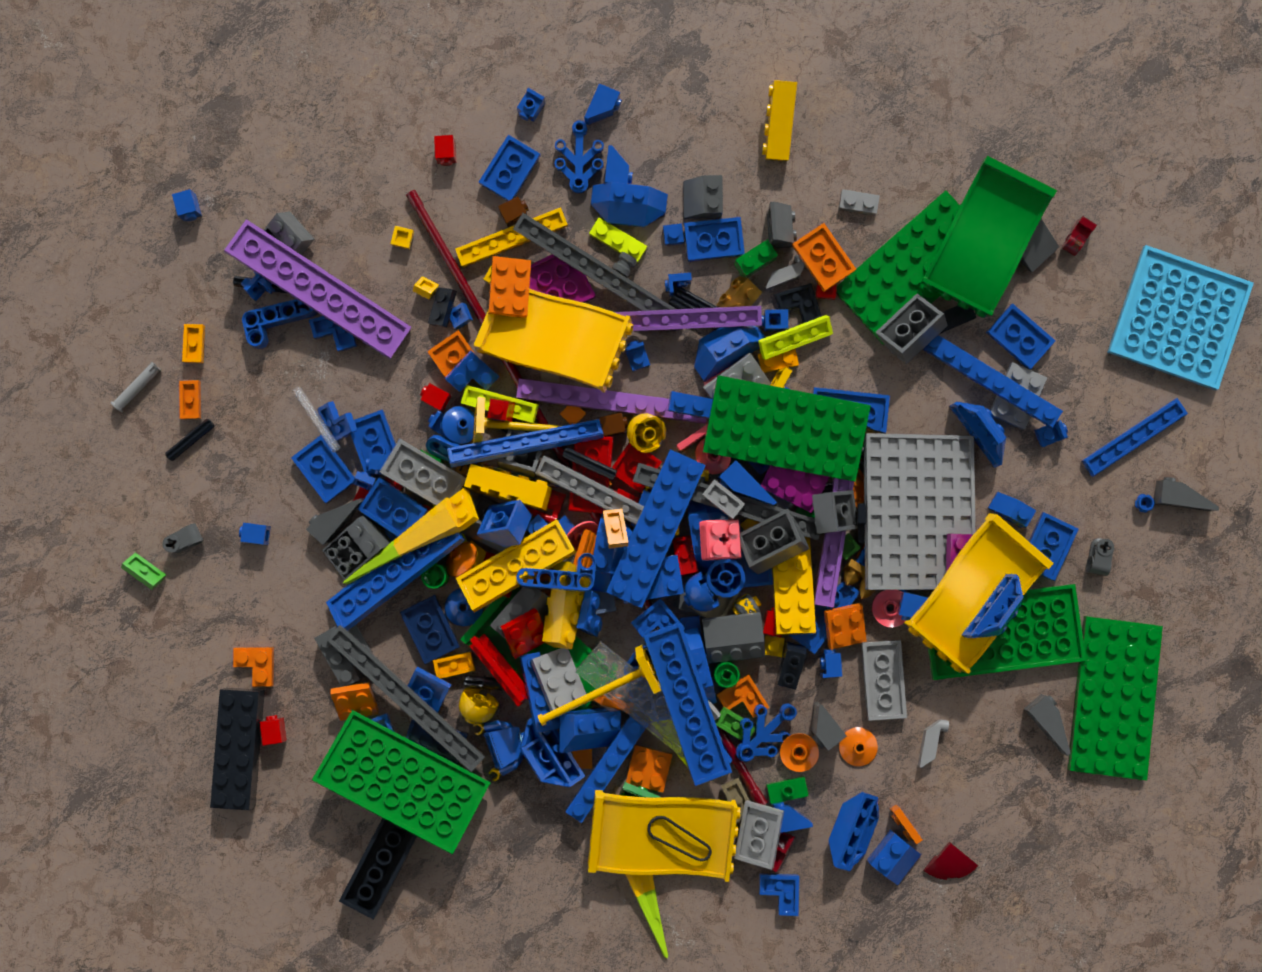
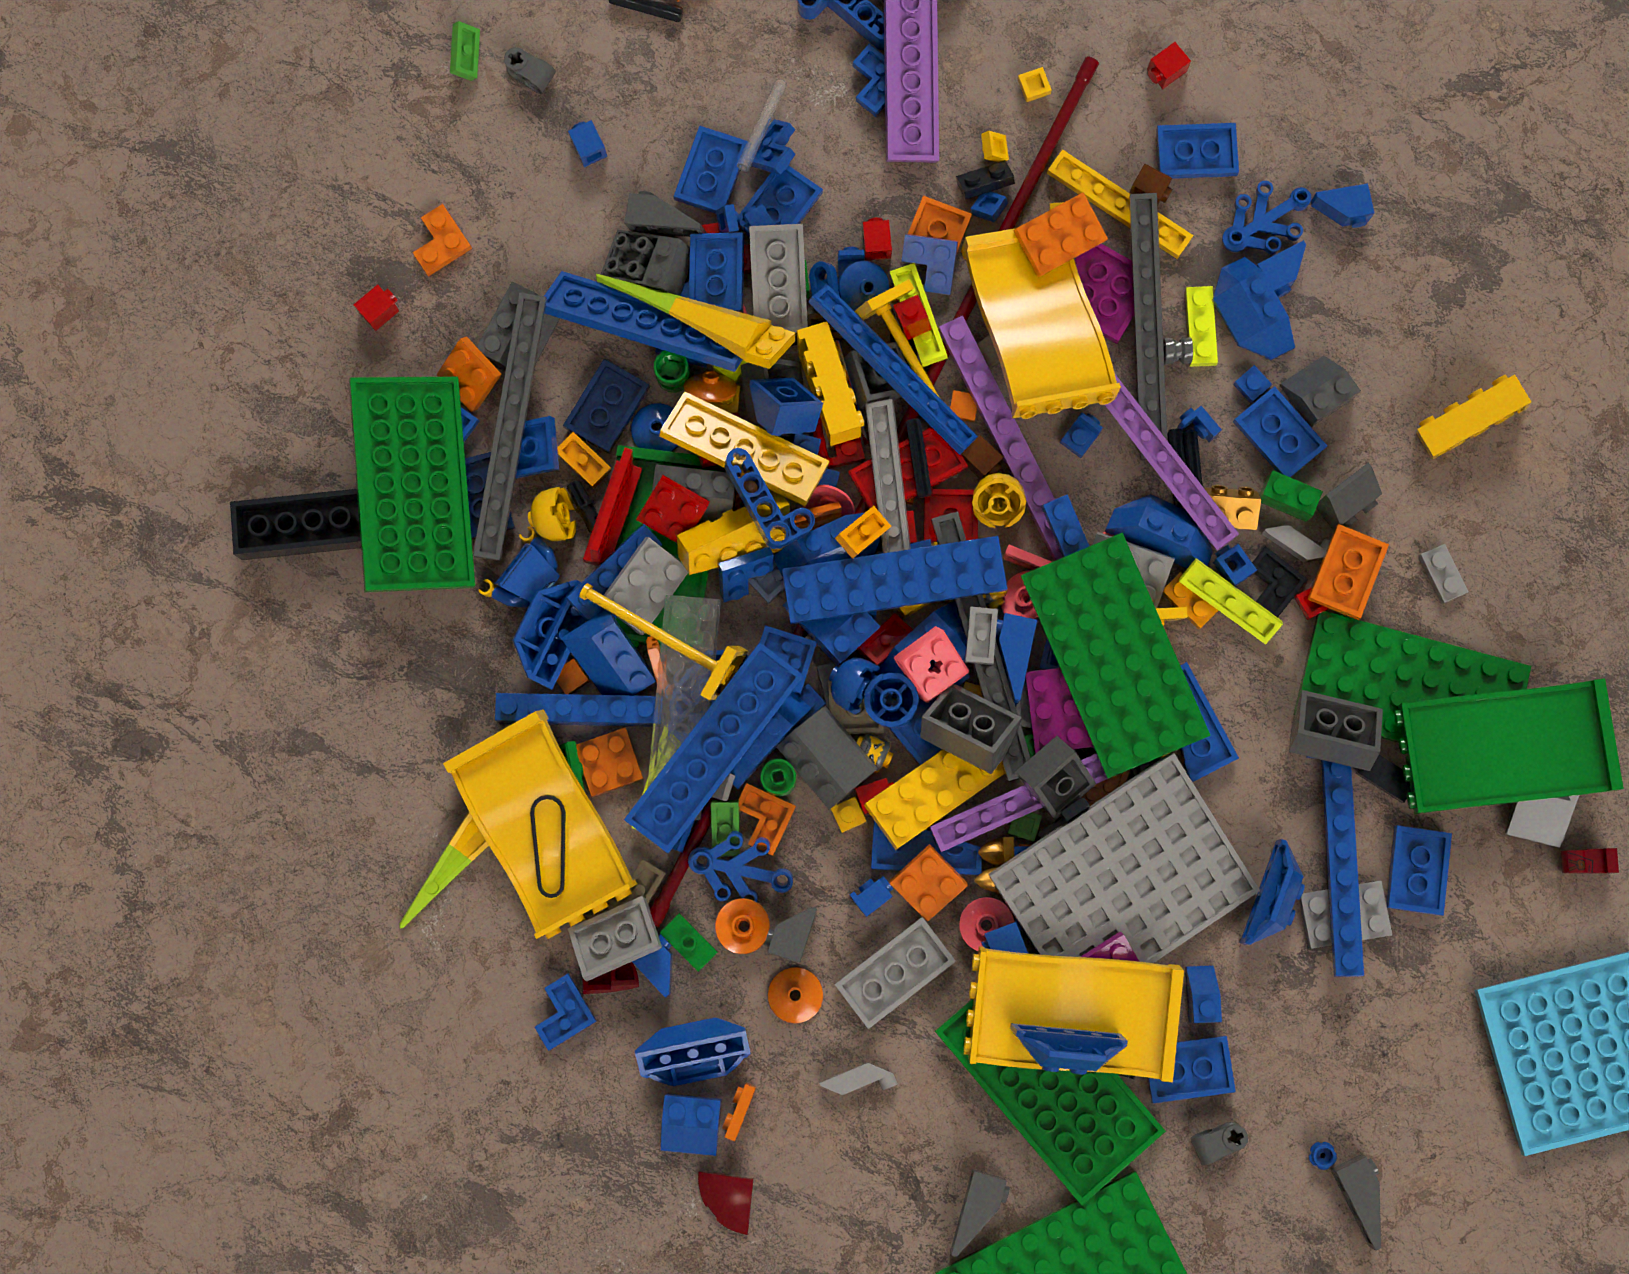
camera: 60 degrees right, 5 degrees down
(237, 749) = (331, 281): black brick -> none
(531, 113) = (1287, 134): blue brick -> none
(791, 665) = (839, 847): black brick -> none
(1051, 435) = (1325, 985): blue bracket -> none
(1134, 437) = (1395, 1091): blue tile -> none

